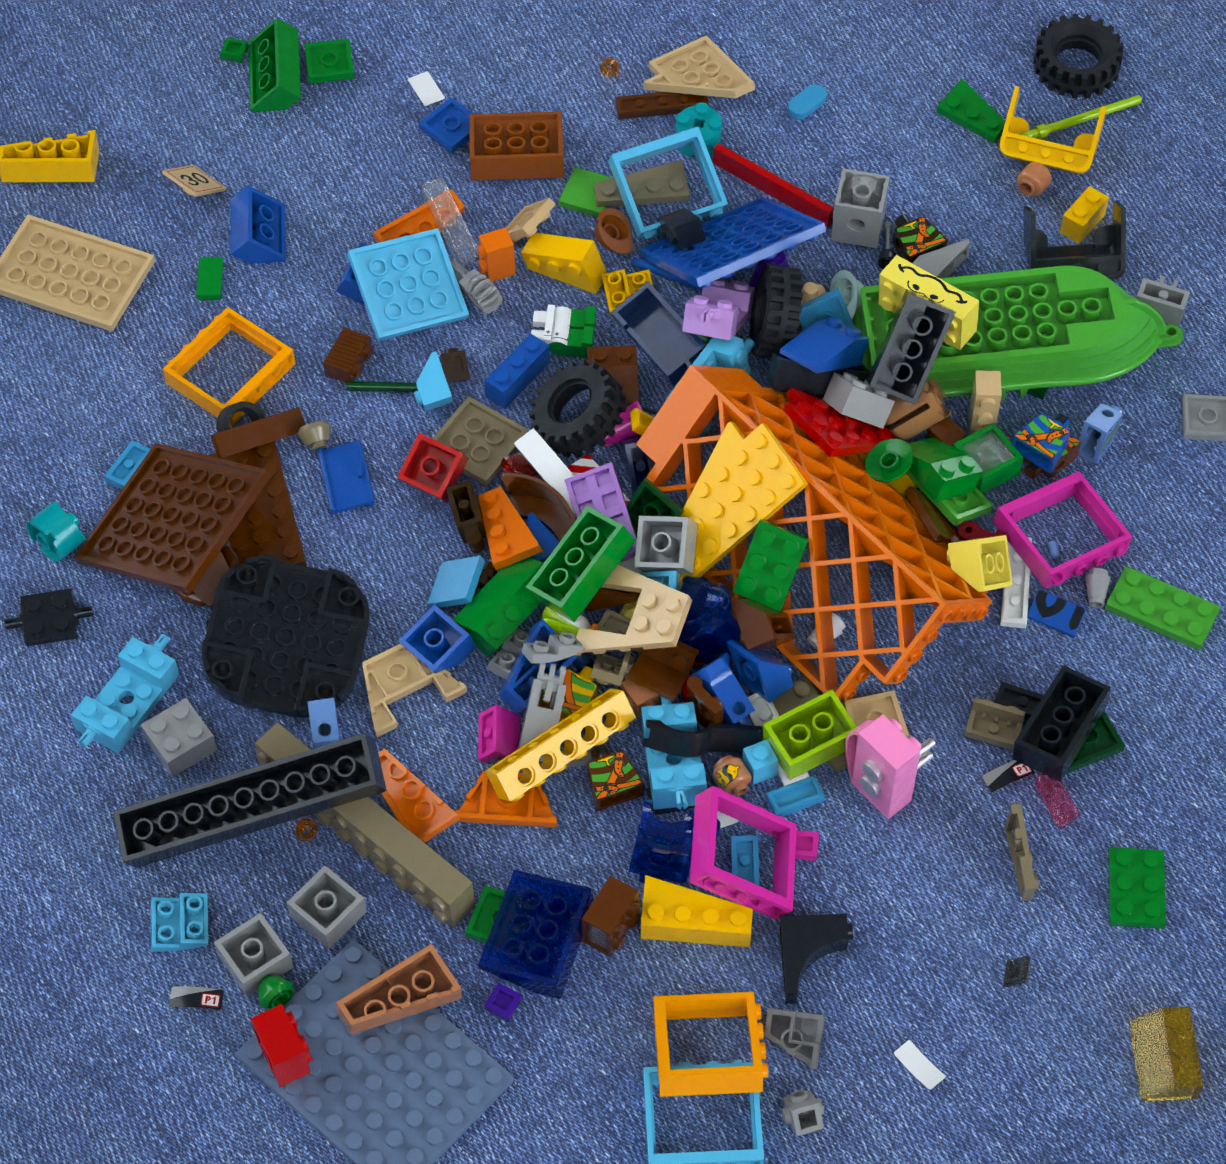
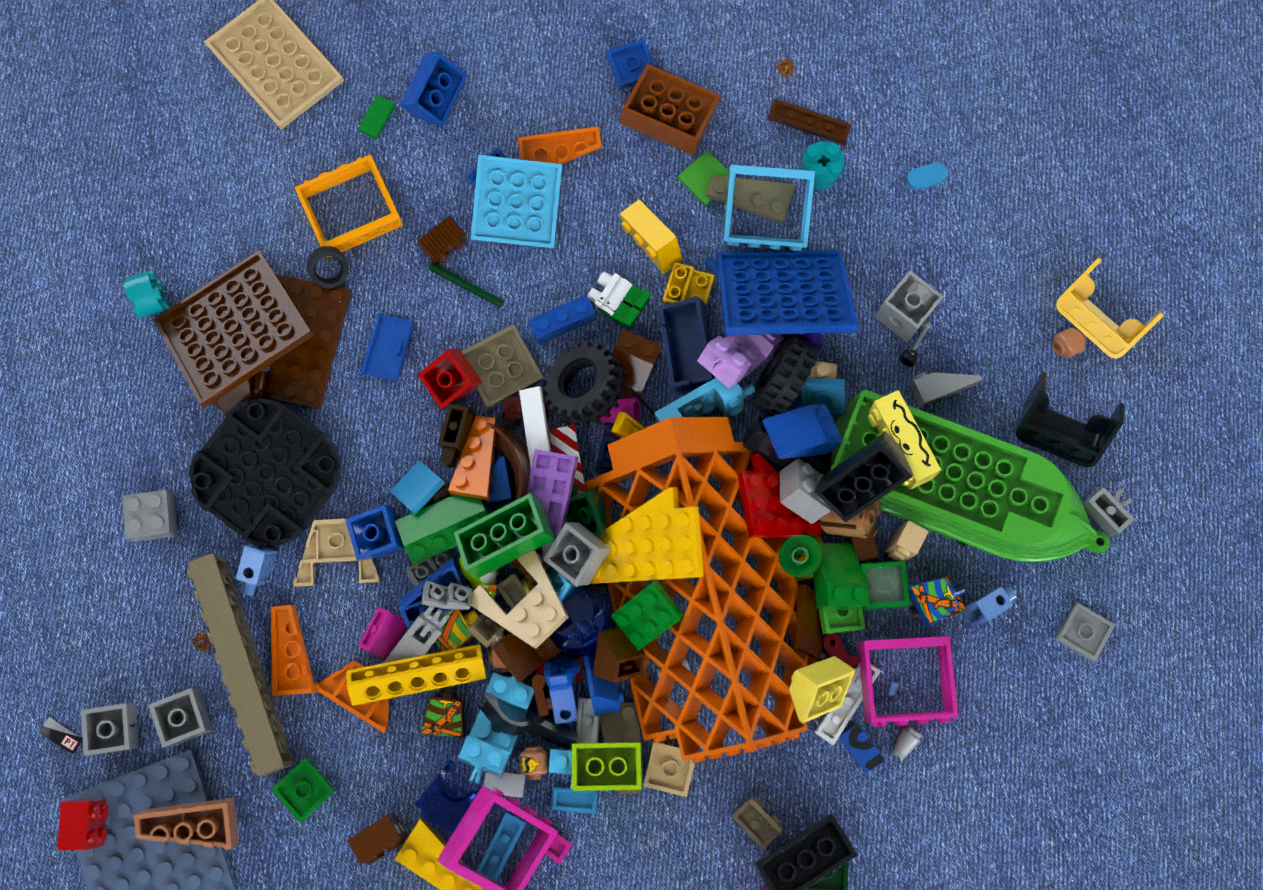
camera: 25 degrees right, 20 degrees up
(48, 617) = (112, 361): black plate -> none
(126, 464) = (231, 256): dark azure plate -> none
(144, 675) = (110, 471): medium azure brick -> none
(179, 922) = (77, 668): medium azure slope -> none
(194, 180) = (406, 22): tan piece -> none
(249, 800) = (159, 613): black brick -> none
(257, 432) = (336, 281): reddish brown tile -> none
(274, 991) = (110, 765): green cone -> none
(315, 434) = (381, 301): dark tan cone -> none
(426, 88) = (631, 18): white sticker -> none
(432, 385) = (490, 301): medium azure slope -> none
(450, 221) = (582, 156): clear tile -> none
(454, 365) = (518, 289): dark brown bracket -> none
(477, 288) = (570, 226): light grey gear -> none
(496, 254) = (598, 207): orange brick -> none
(503, 1002) = (269, 860): dark purple plate -> none
(528, 218) = (640, 185): tan plate -> none
(537, 933) = (318, 821): clear blue slope -> none
(614, 231) = (703, 229): dark orange piece -> none
(681, 228) = (753, 256): black brick -> none
(698, 70) = (853, 107): tan wing -> none
(772, 184) = (854, 244): red tile -> none
(849, 289) = (857, 377): light aqua piece -> none
(885, 763) = (641, 830): bright pink piece -> none
(916, 237) = (941, 353): torso -> none
(972, 112) = (1056, 250): green wing -> none
(1006, 774) = (741, 865): sticker -> none
(1018, 697) = (789, 812): black plate -> none
(1042, 130) = (1103, 298): lime bar -> none
(1079, 34) = (1190, 222): black tyre -> none
(1084, 215) = (1091, 396): yellow brick -> none
(1162, 608) = (949, 785): bright green plate -> none

